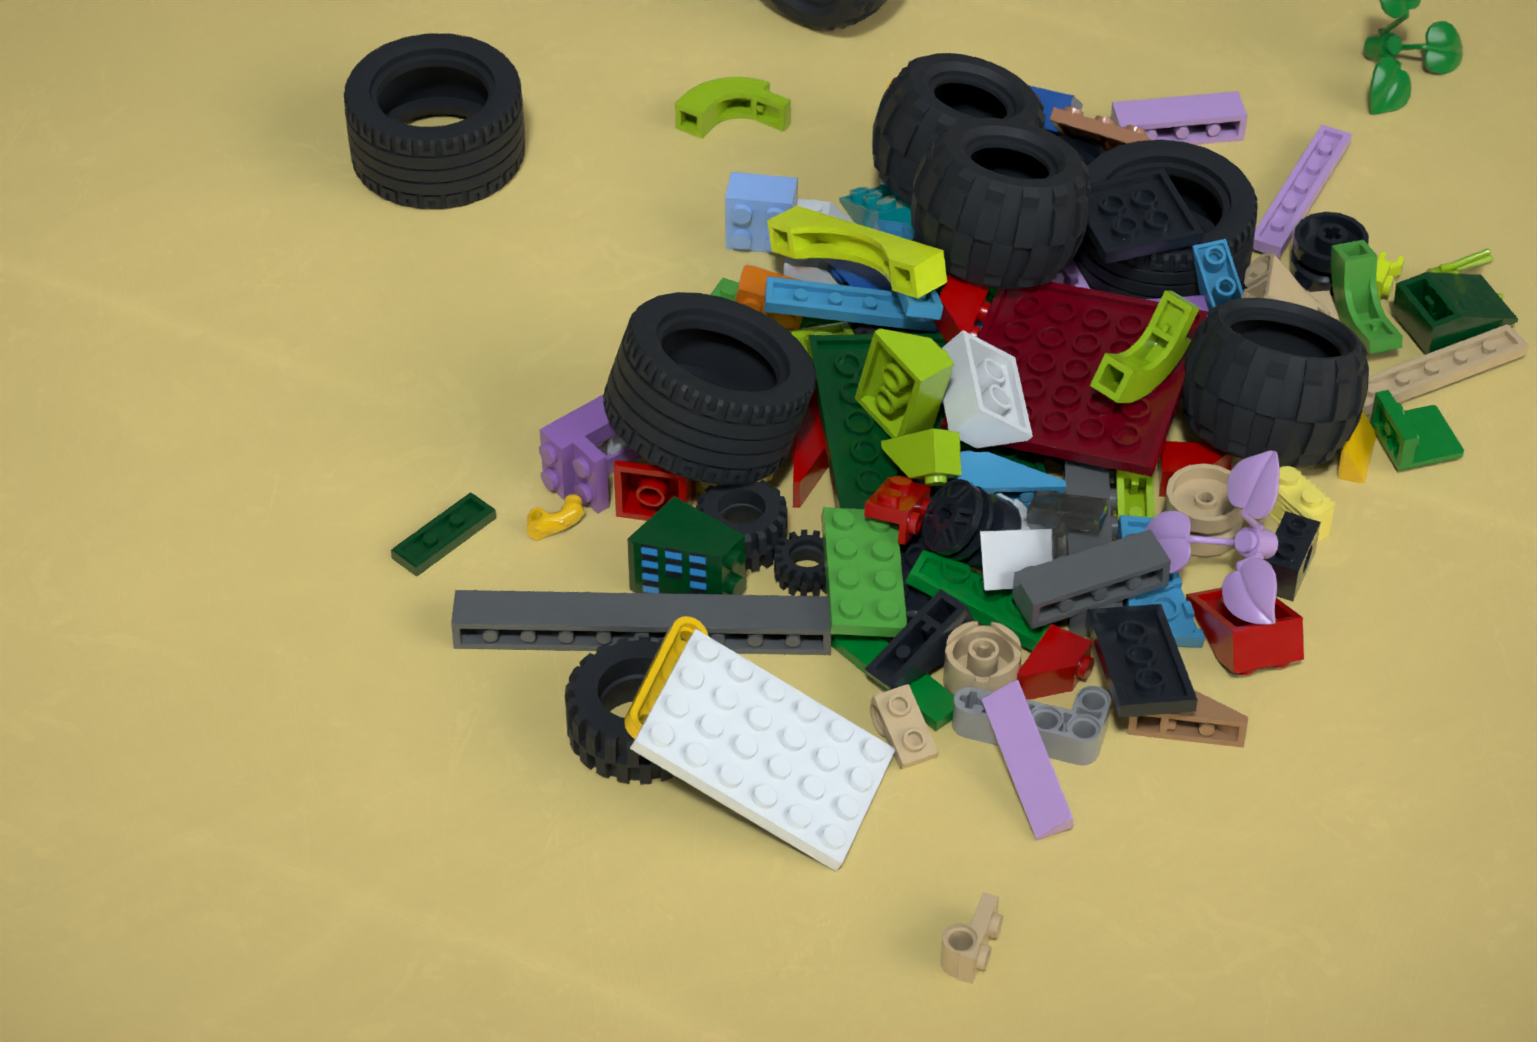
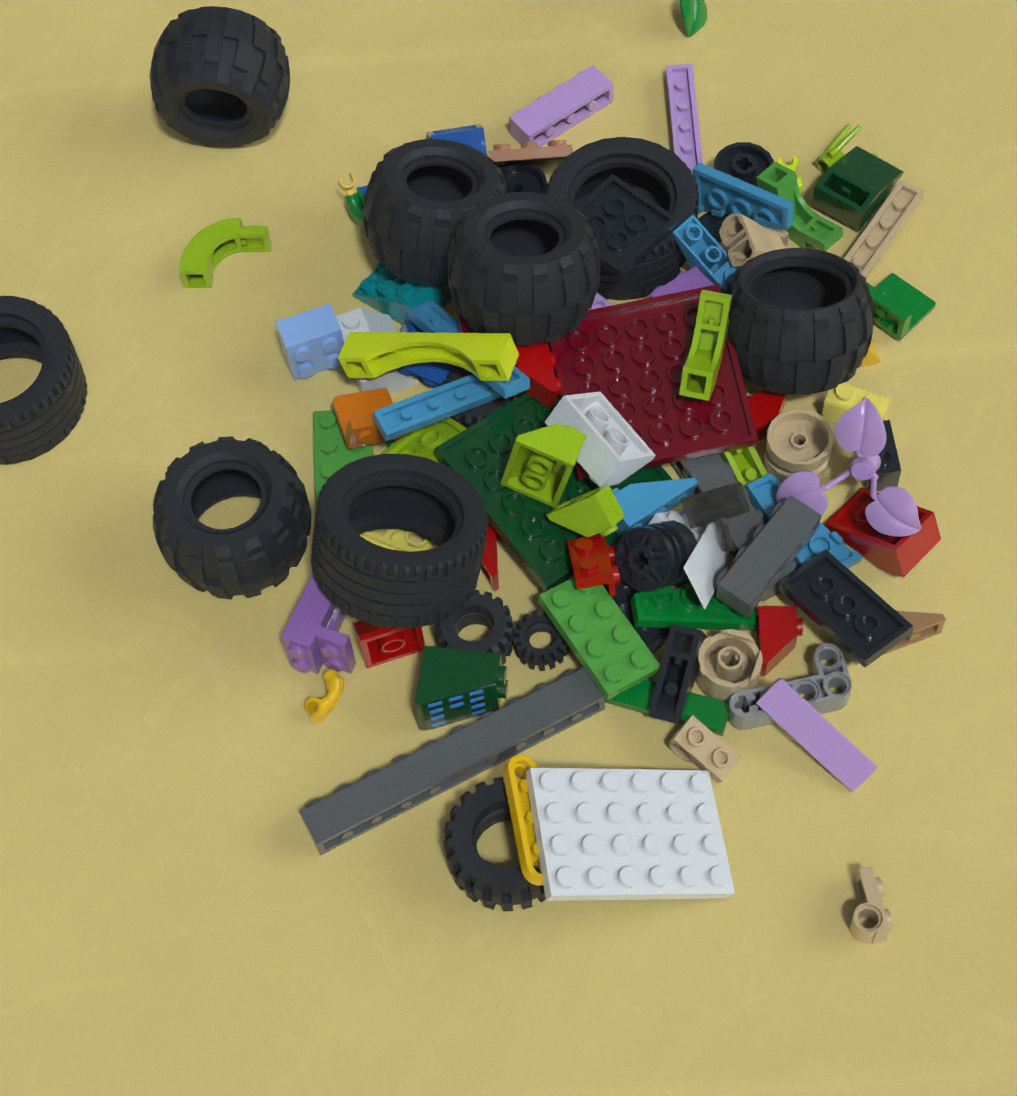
camera: 25 degrees left, 15 degrees up
(443, 534) = (246, 756): dark green tile -> none
(559, 313) = (241, 557): none -> black tyre
(1304, 259) = (730, 195): none -> dark azure wing

